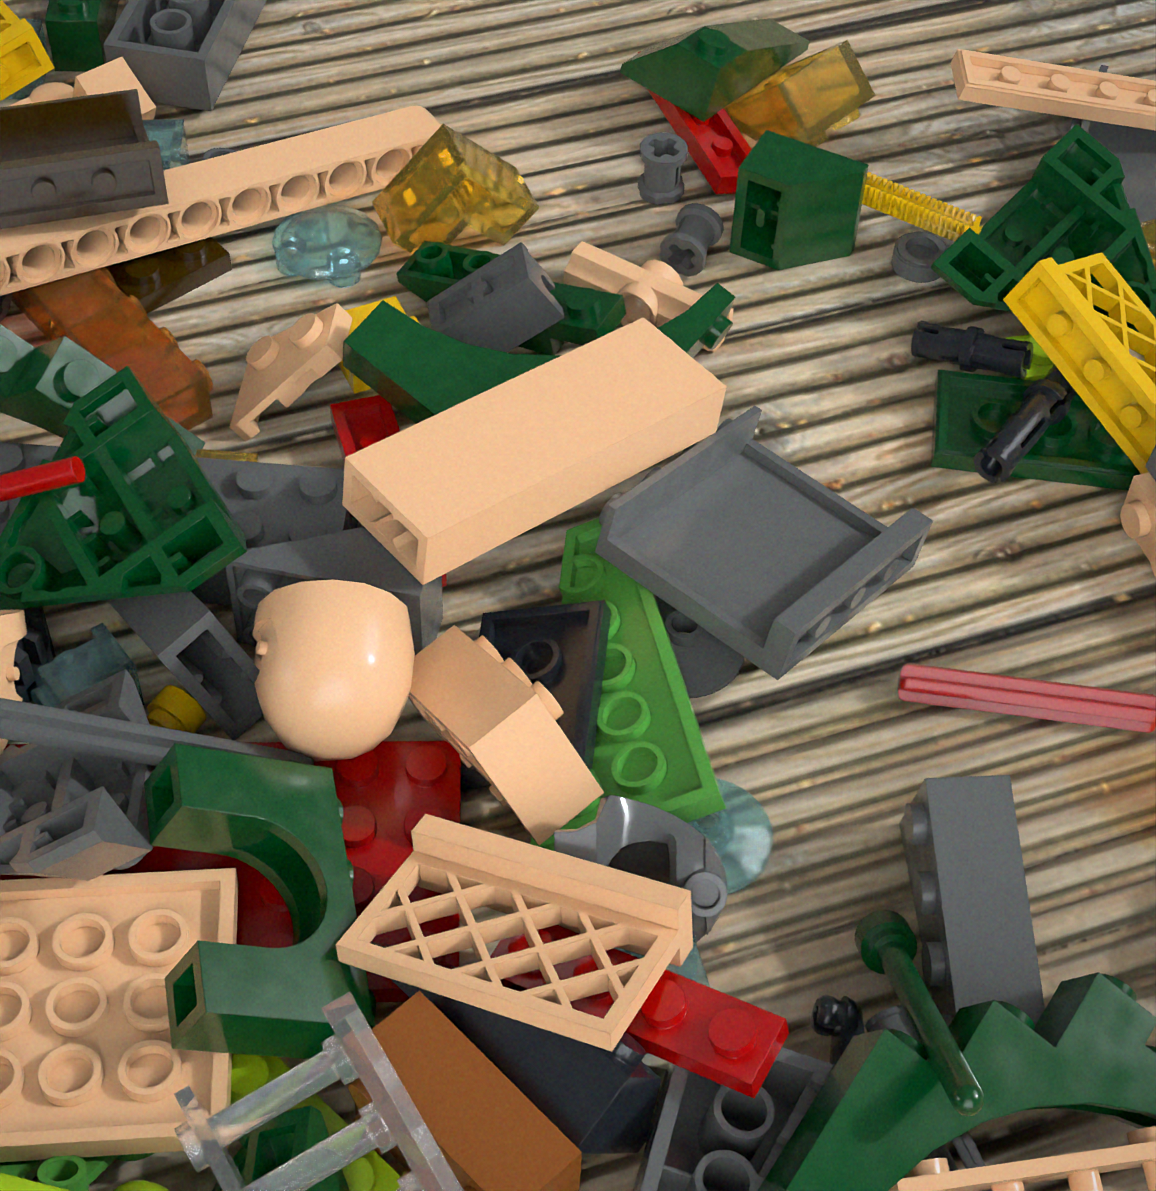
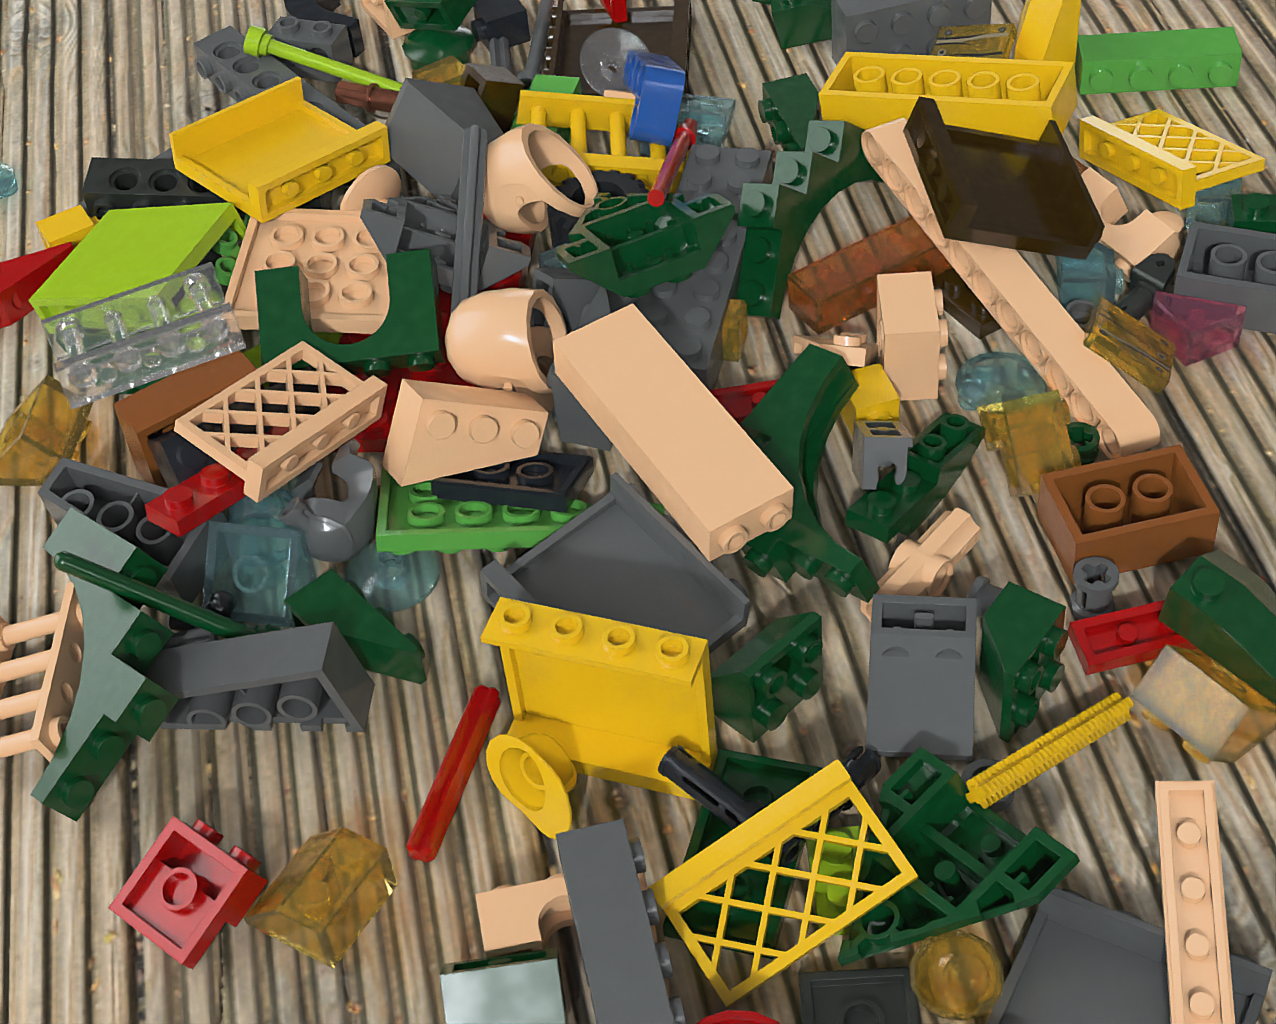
camera: 105 degrees right, 5 degrees down
(184, 100) = (1144, 281): none -> pearl dark grey piece
(247, 86) = (1196, 325): none -> clear pink slope
(274, 278) = (911, 333): none -> light nougat brick
(296, 118) = (1129, 345): none -> clear yellow tile
(565, 132) = (1129, 511): none -> dark orange brick
(773, 965) = (257, 568): none -> clear light blue slope
(810, 286) = (922, 676): none -> dark grey slope
(830, 858) = (365, 628): none -> dark green slope
(843, 394) = (770, 675): none -> dark green slope
(974, 479) = (606, 690): none -> yellow panel
(1040, 591) = (535, 778): none -> yellow piece

